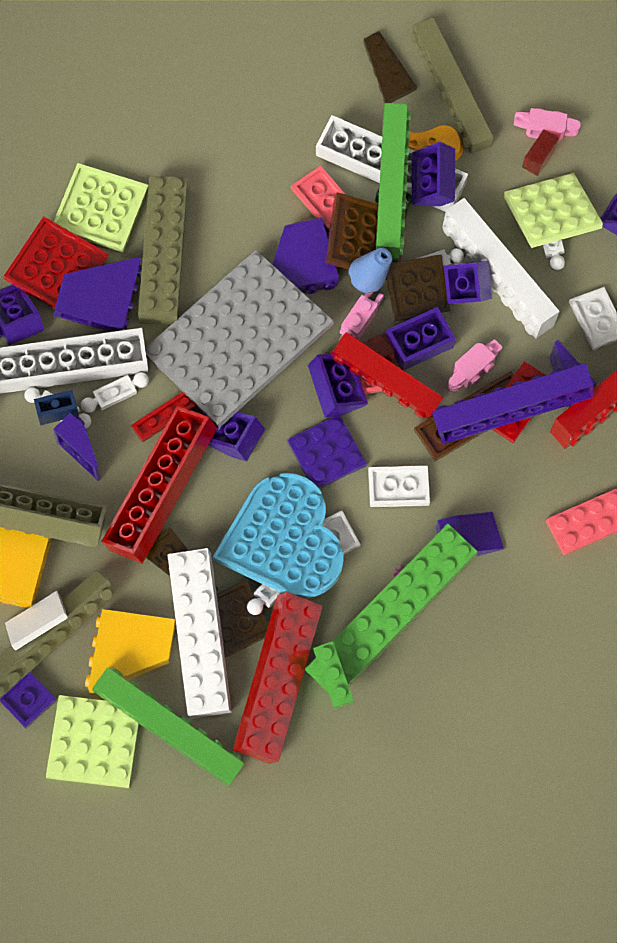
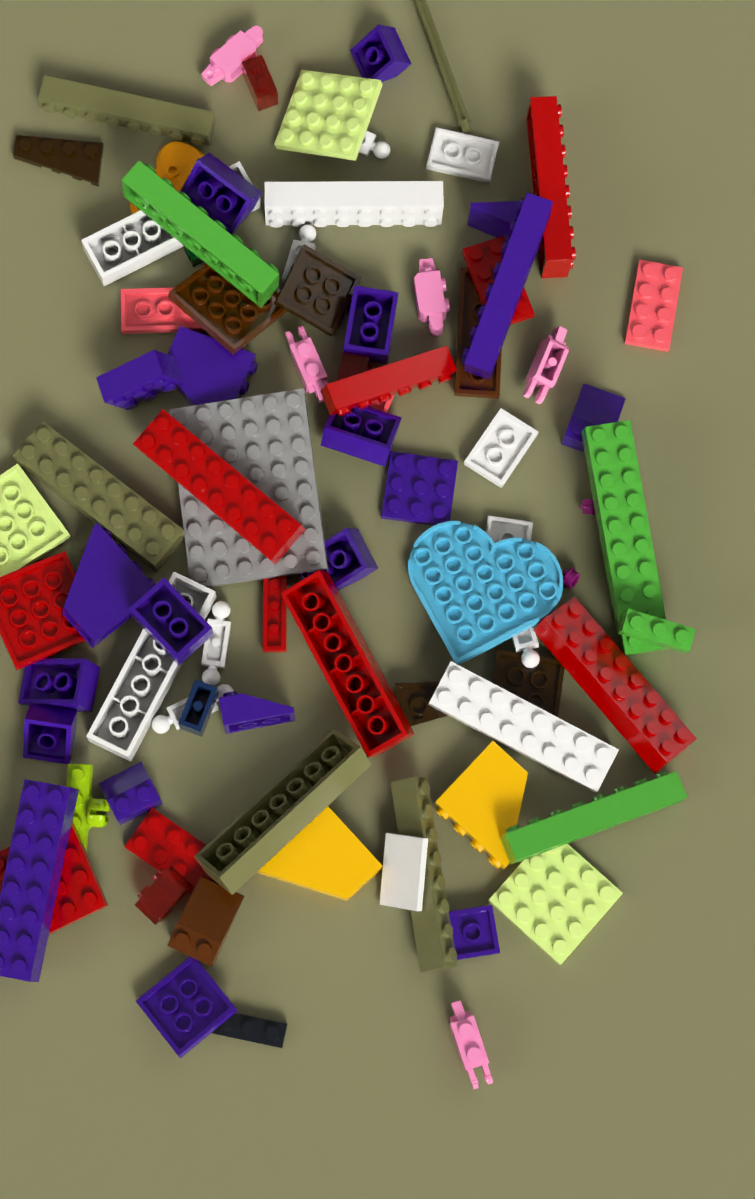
camera: 55 degrees left, 5 degrees up
(101, 346) = (171, 621): none -> dark purple brick
(221, 315) = (219, 486): none -> red brick
(260, 216) = (139, 380): none -> dark purple brick
(337, 596) = (570, 578): none -> magenta plate
(370, 270) = (274, 317): medium blue cone -> none
(468, 282) = (350, 240): dark purple brick -> none
(484, 475) = (547, 364): none -> bright pink hinge

